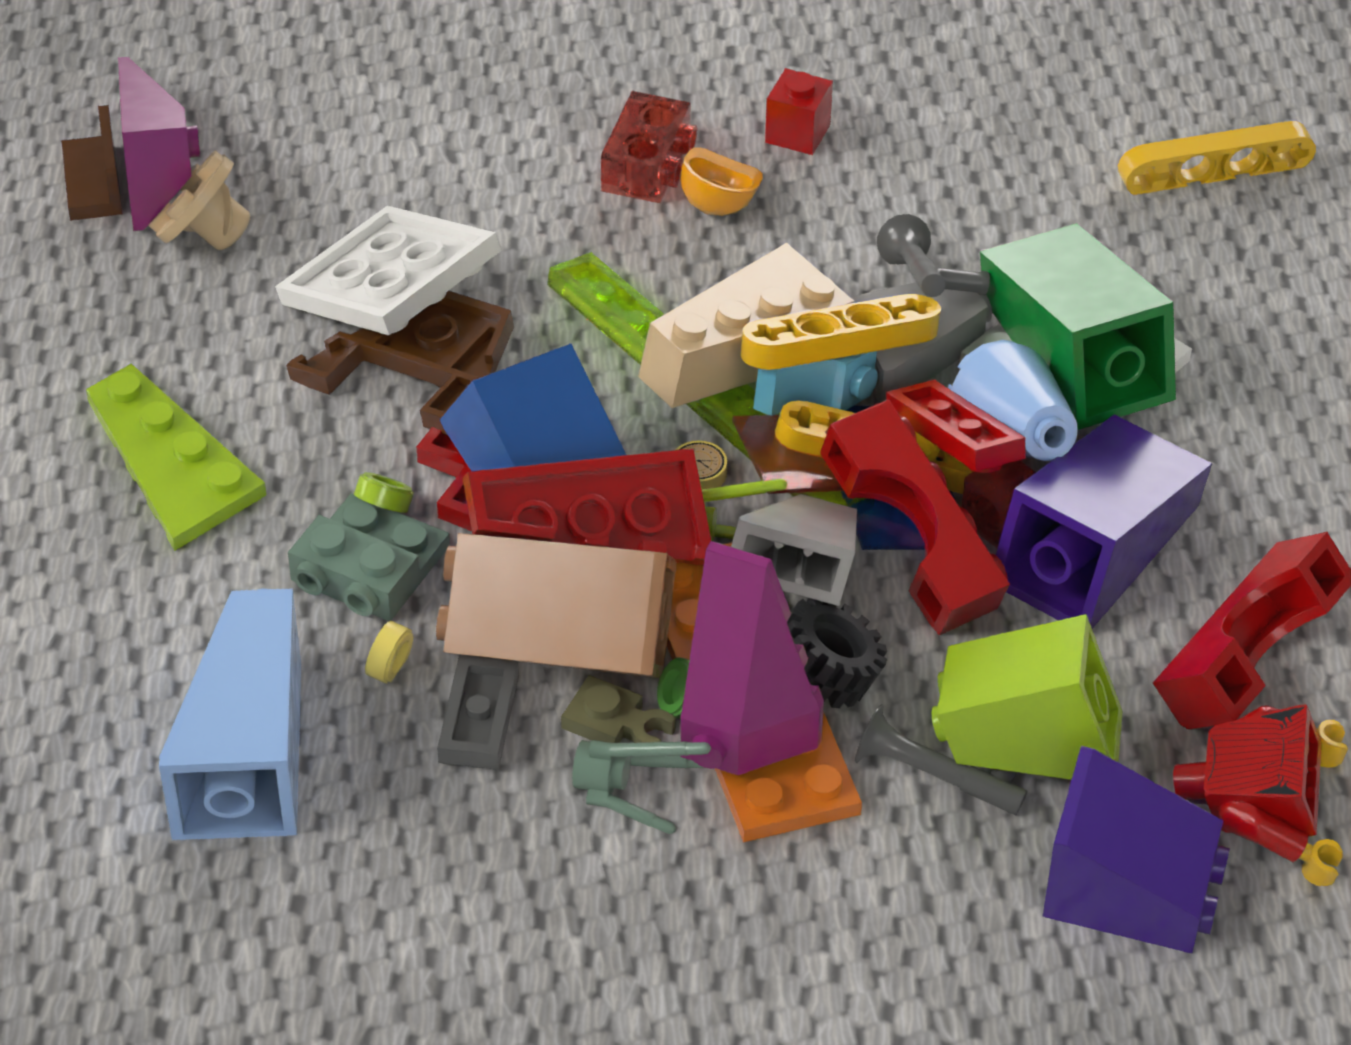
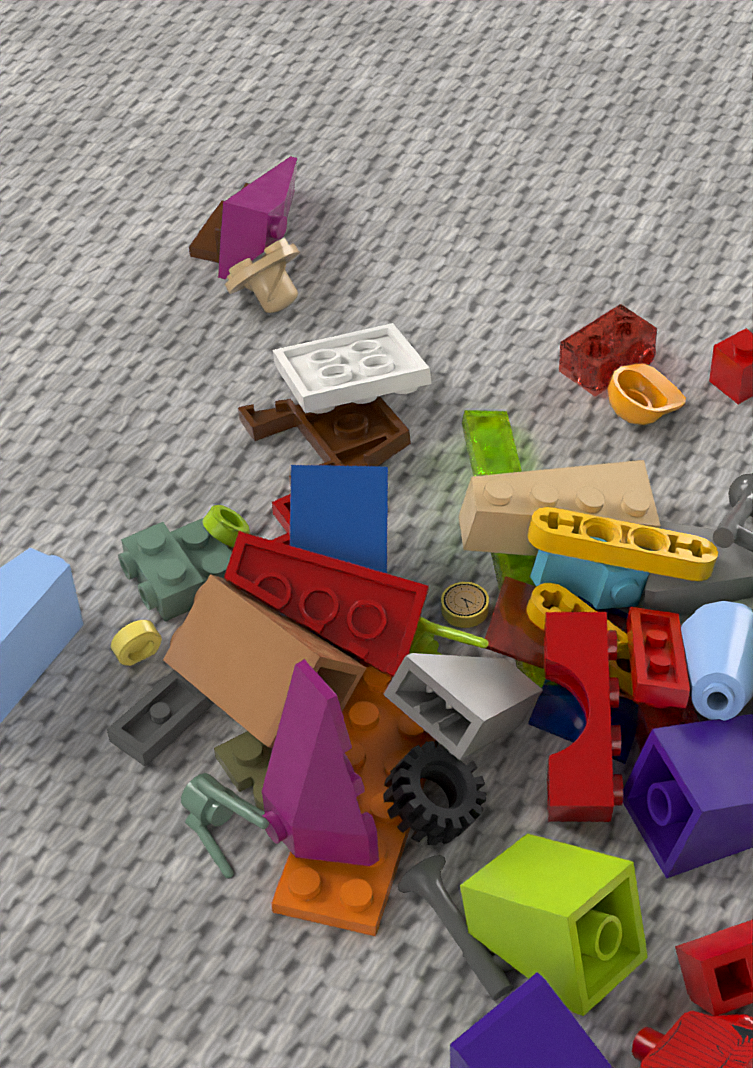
camera: 35 degrees right, 0 degrees up
(175, 461) = (116, 443): lime wing -> none

